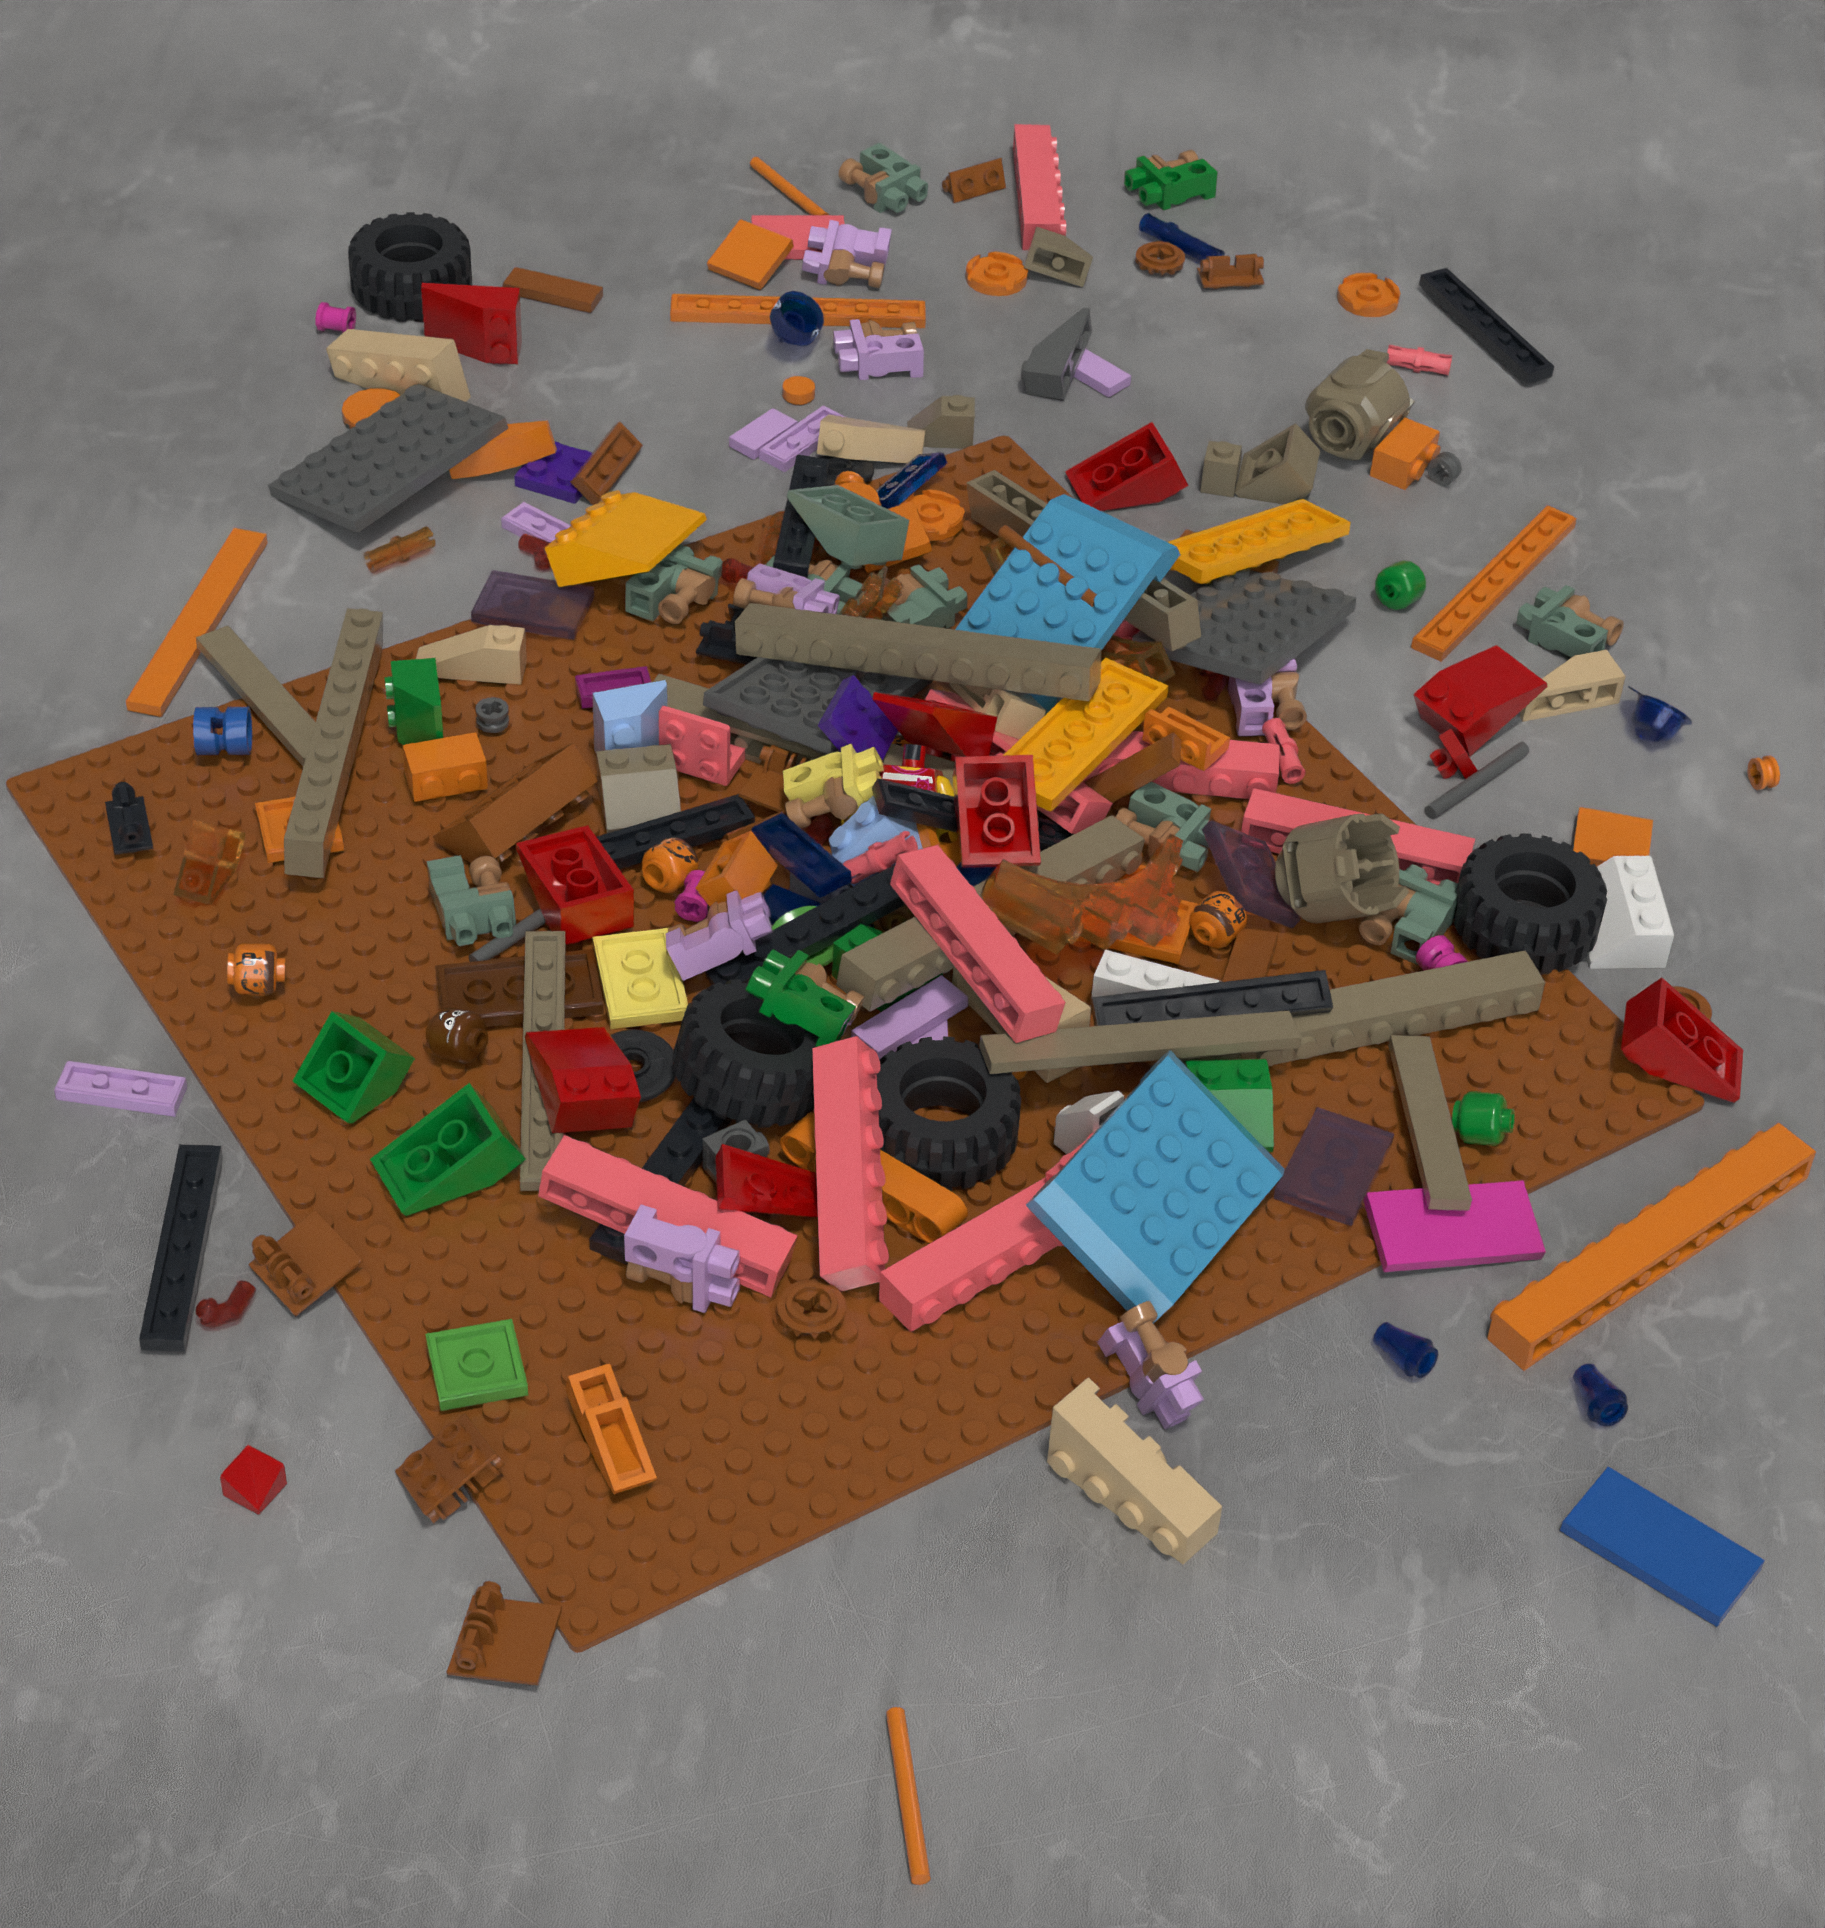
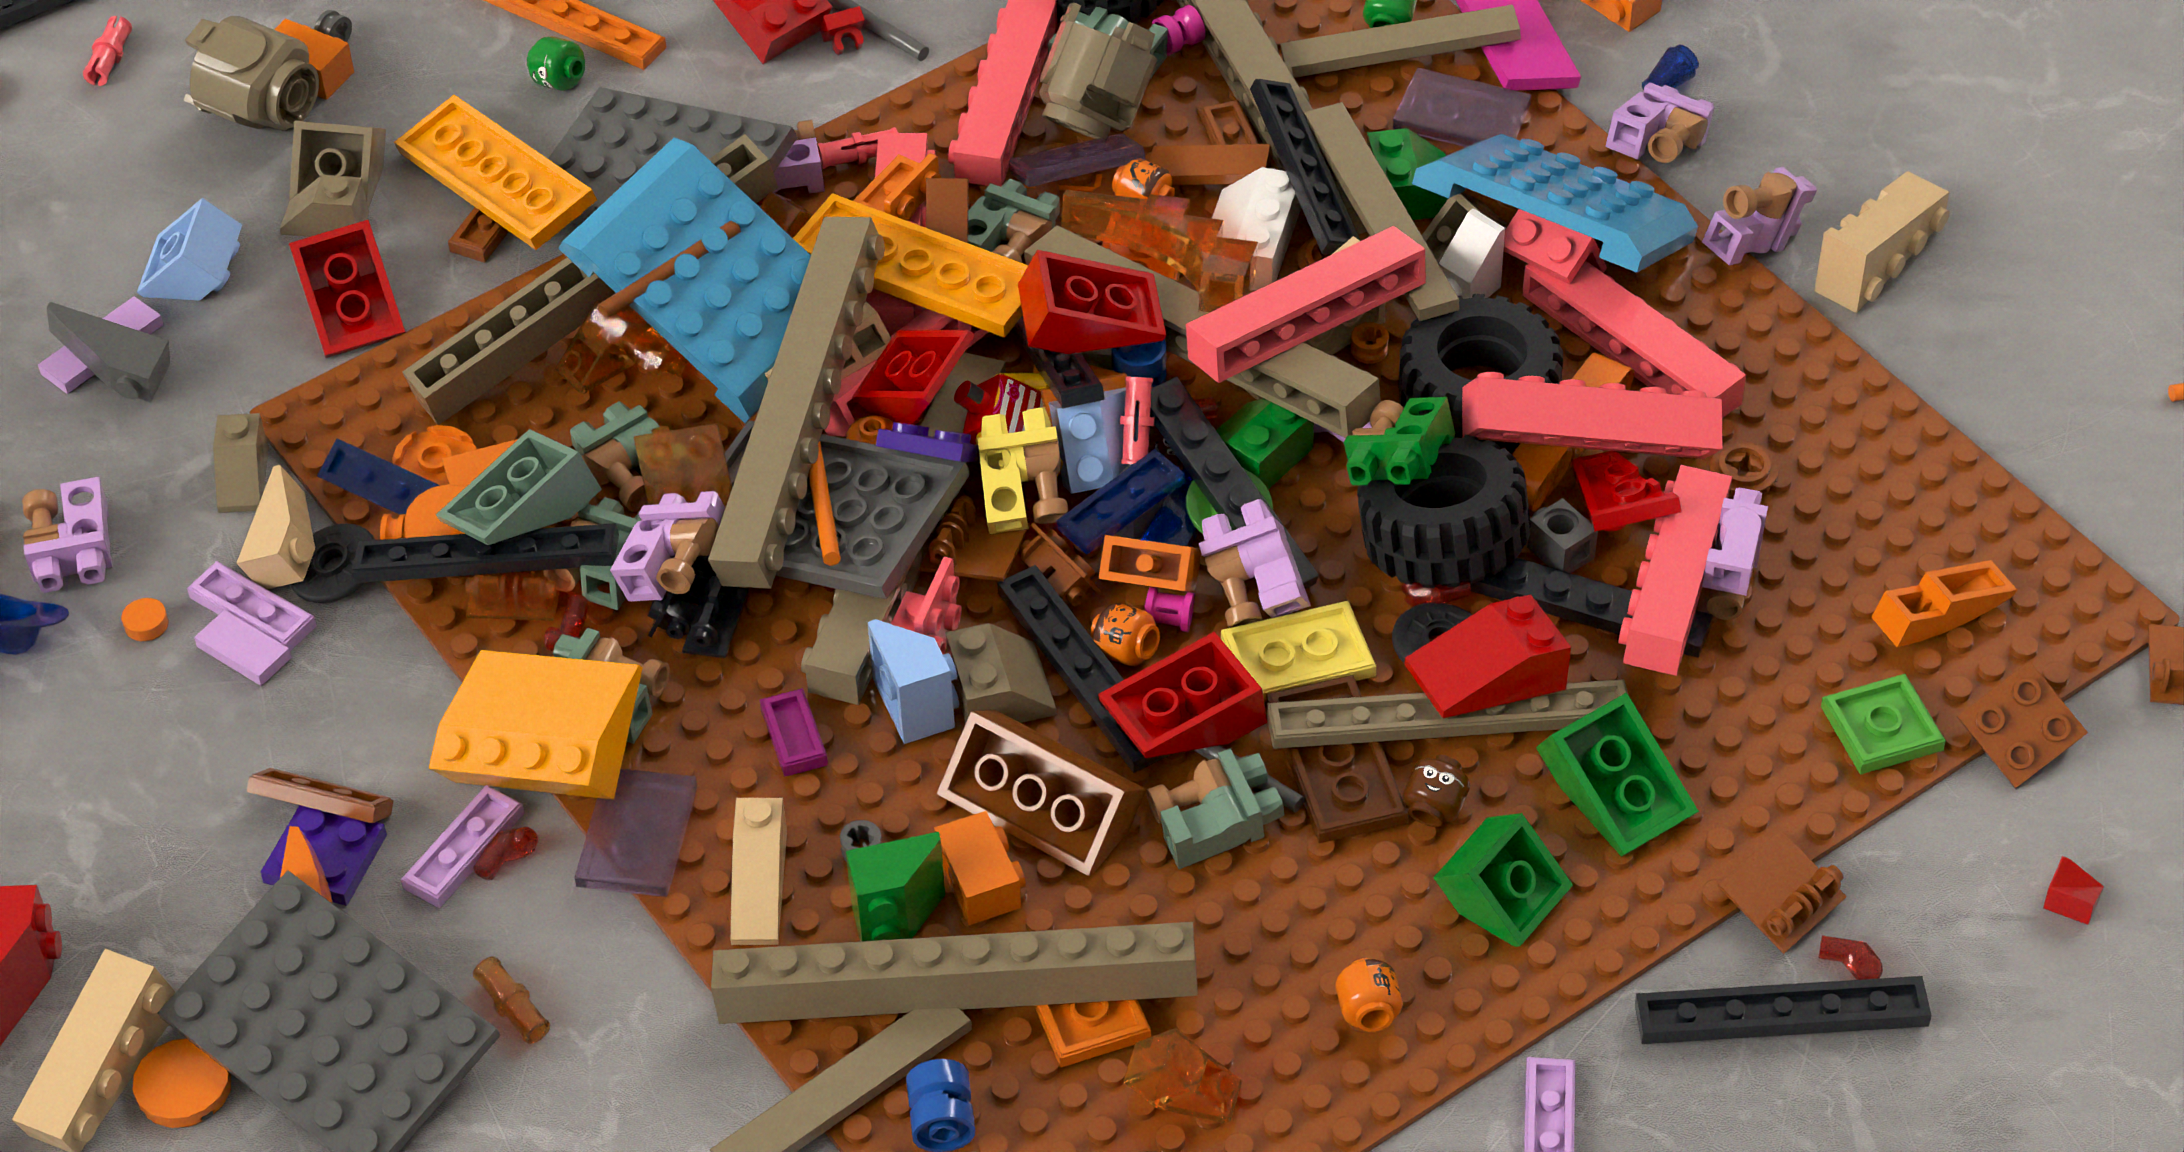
camera: 90 degrees left, 5 degrees up
(815, 675) = (823, 511): none -> orange bar
(1170, 398) = (192, 255): none -> light blue slope
(1325, 1322) = (1661, 120): none -> lavender hips

